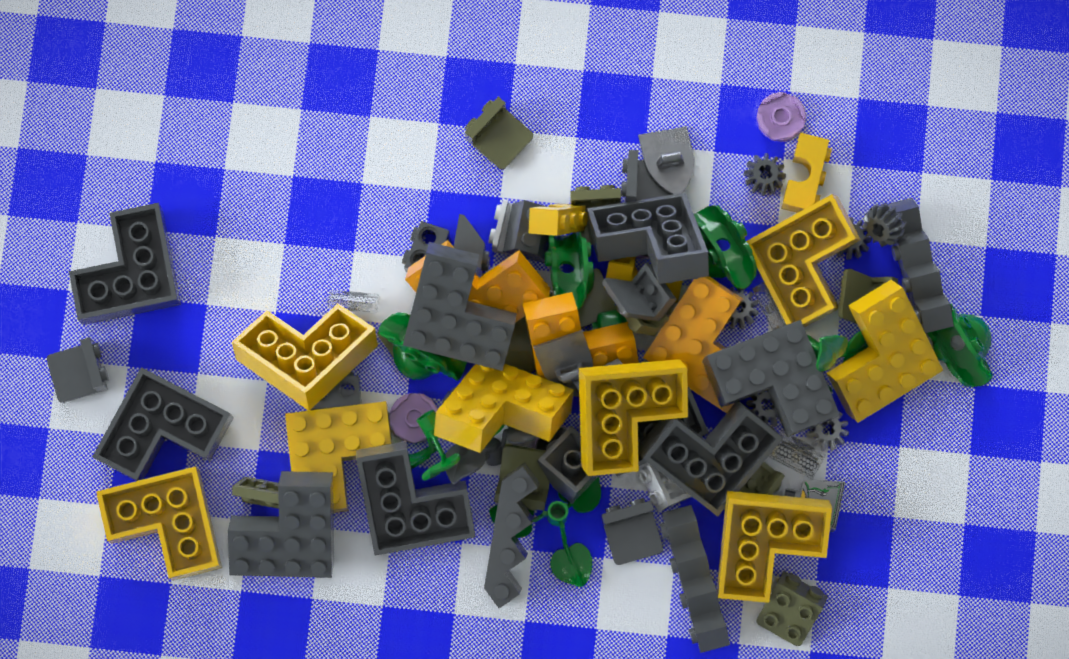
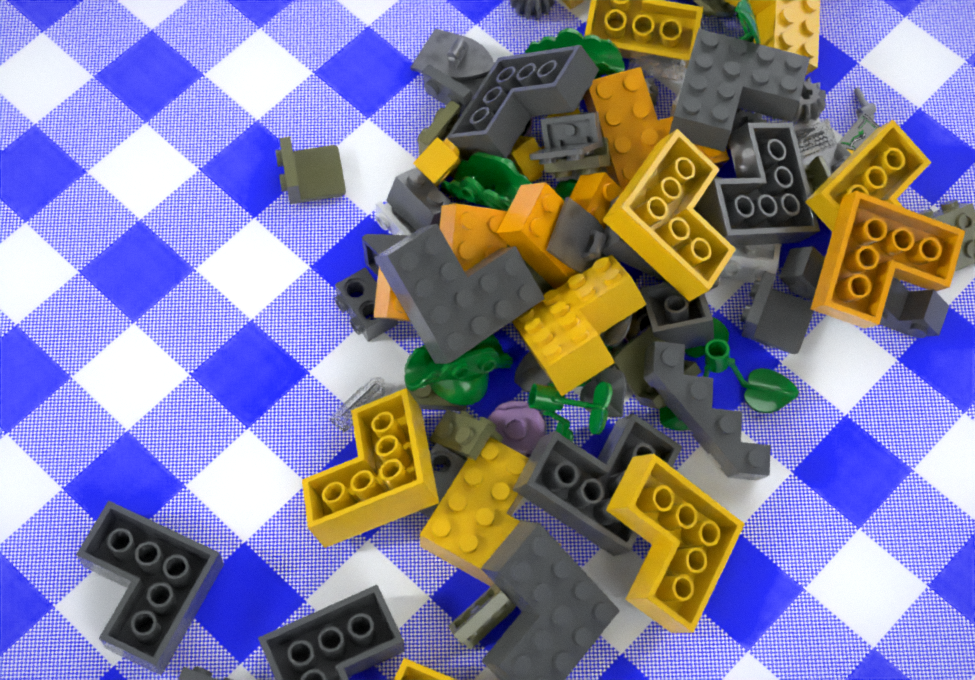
camera: 55 degrees left, 15 degrees down
(377, 388) = (464, 433): none -> olive bracket
(409, 589) = (688, 540): none -> yellow brick
(712, 561) = (872, 246): none -> light orange brick
(856, 482) = (868, 108): none -> light grey hand

